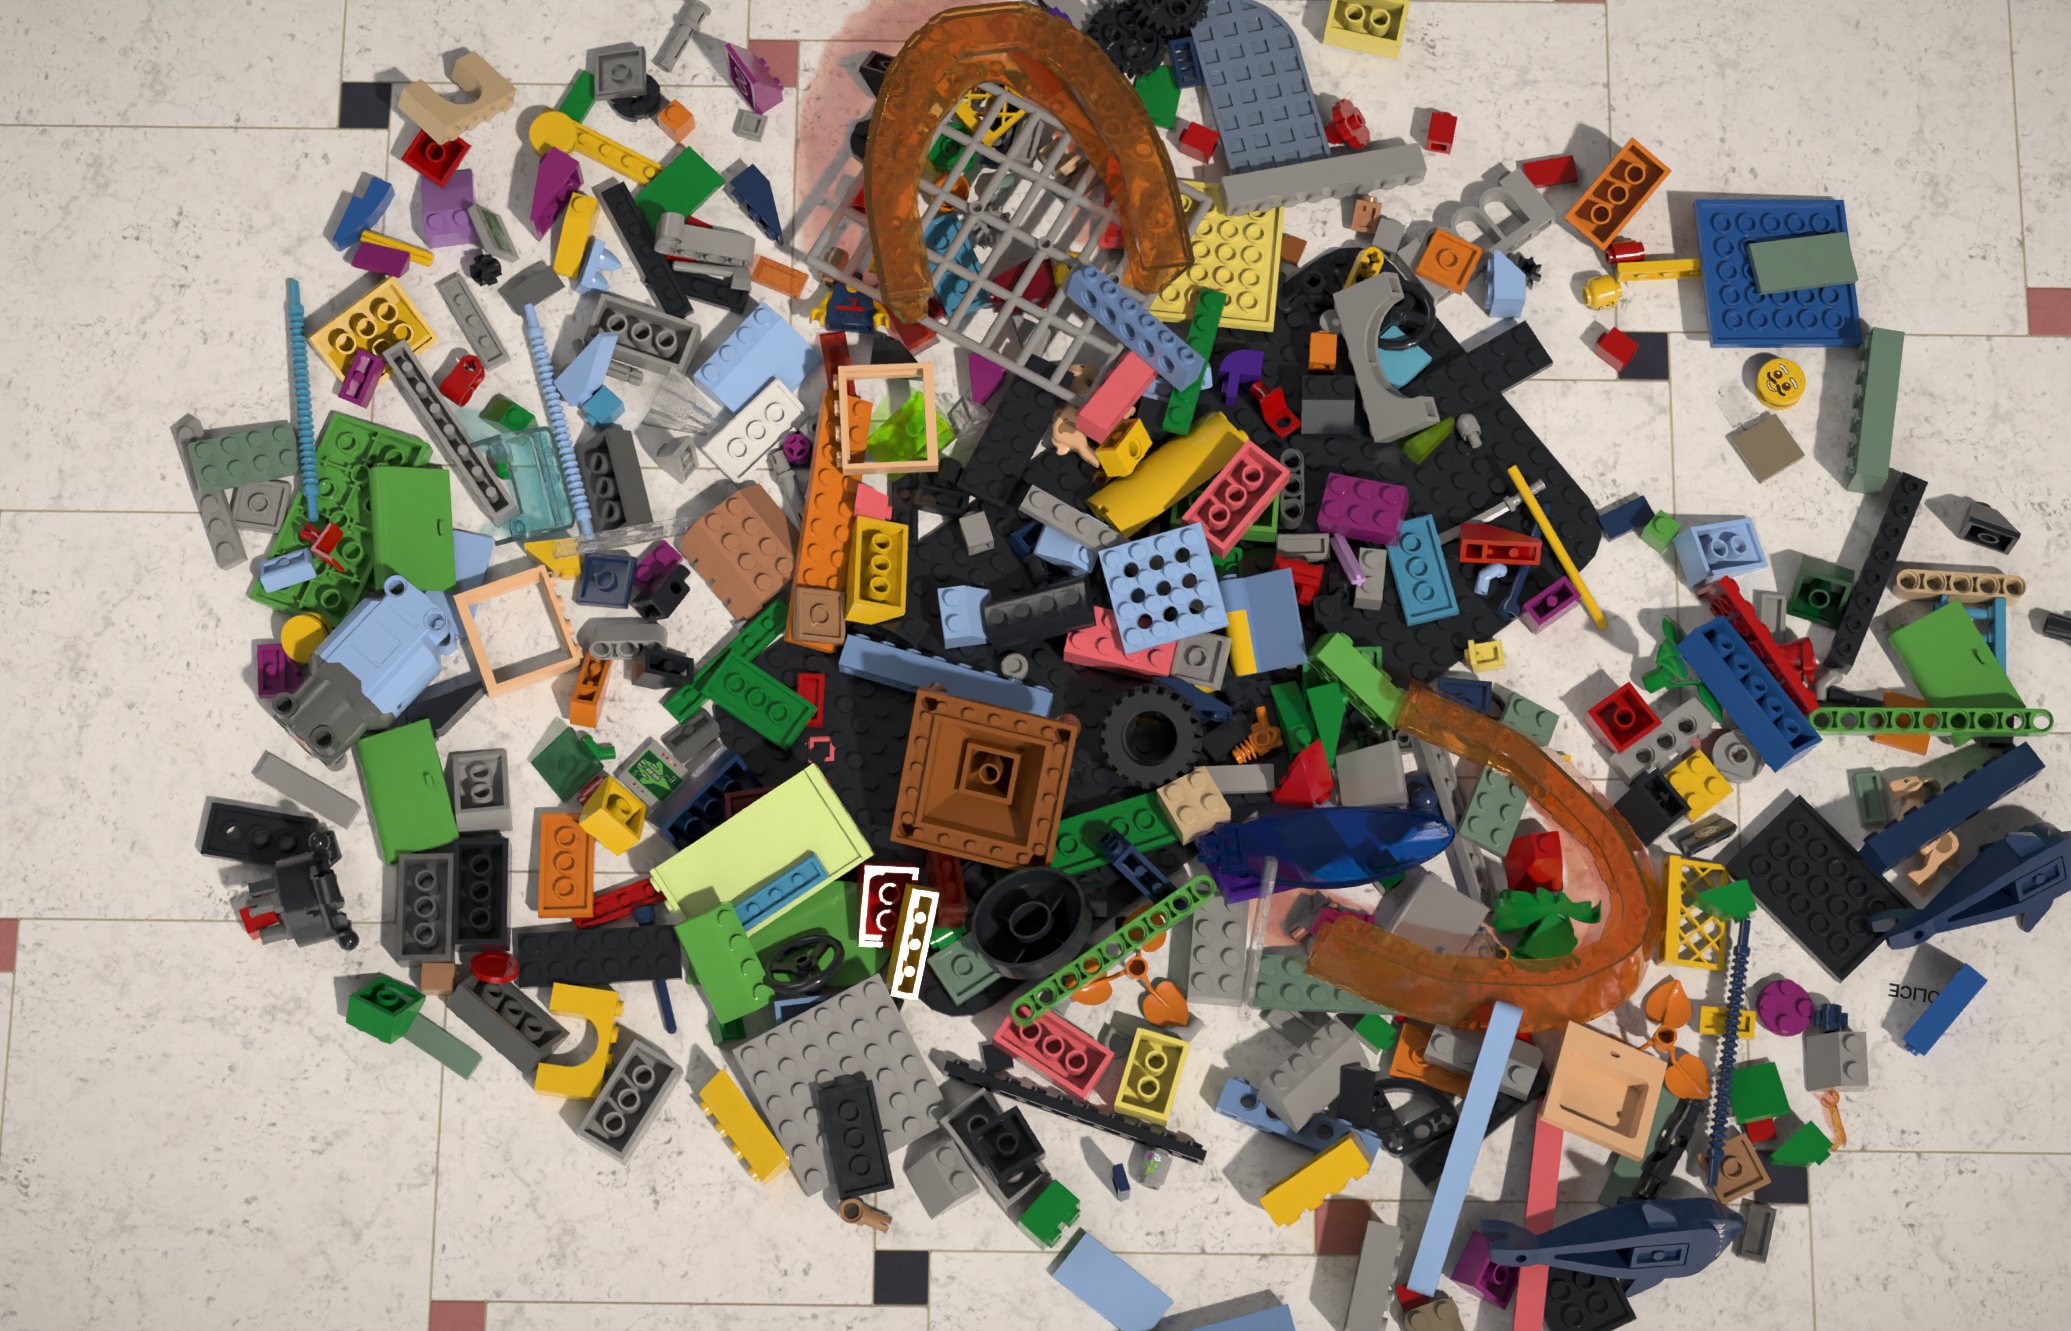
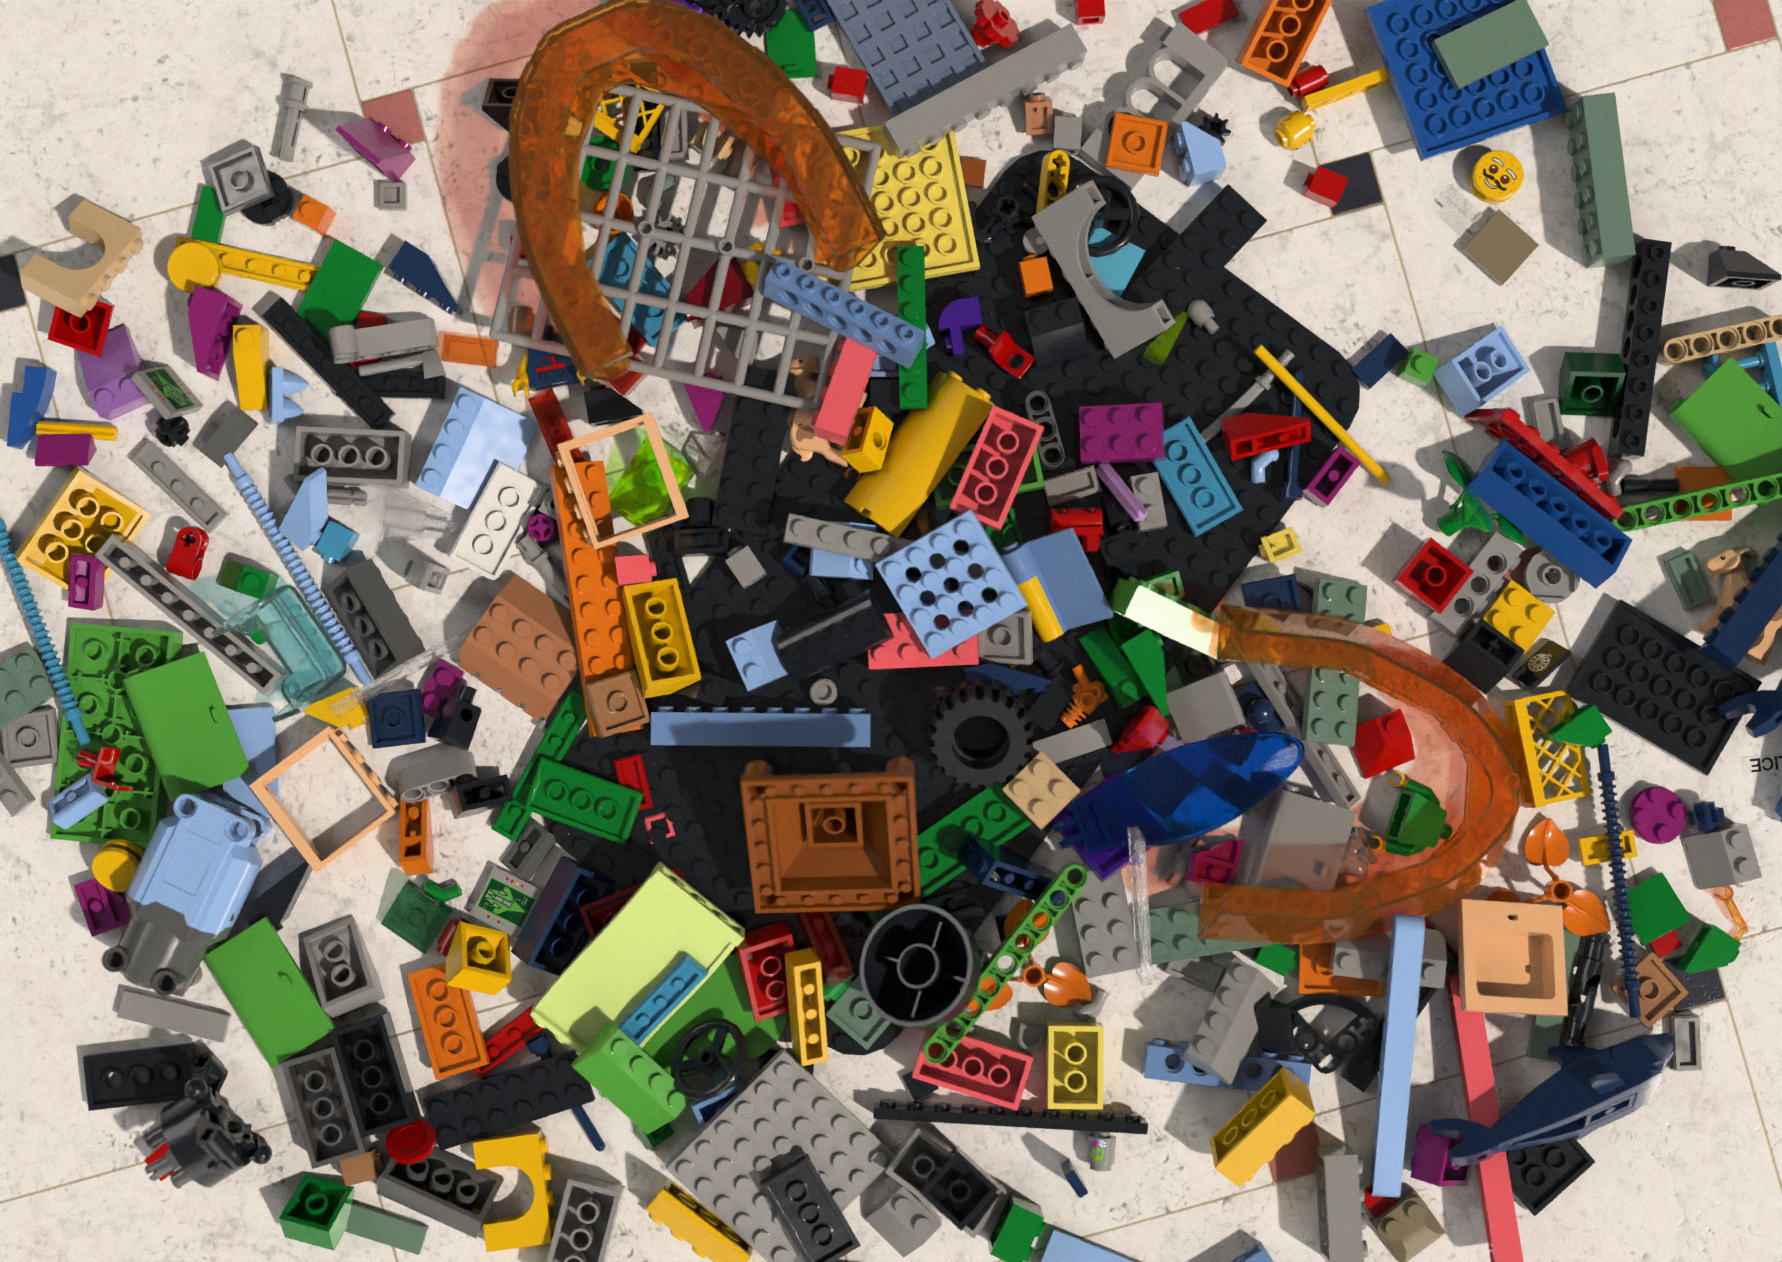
camera: 15 degrees left, 15 degrees up
(1522, 908) = (1379, 805): green animal -> none

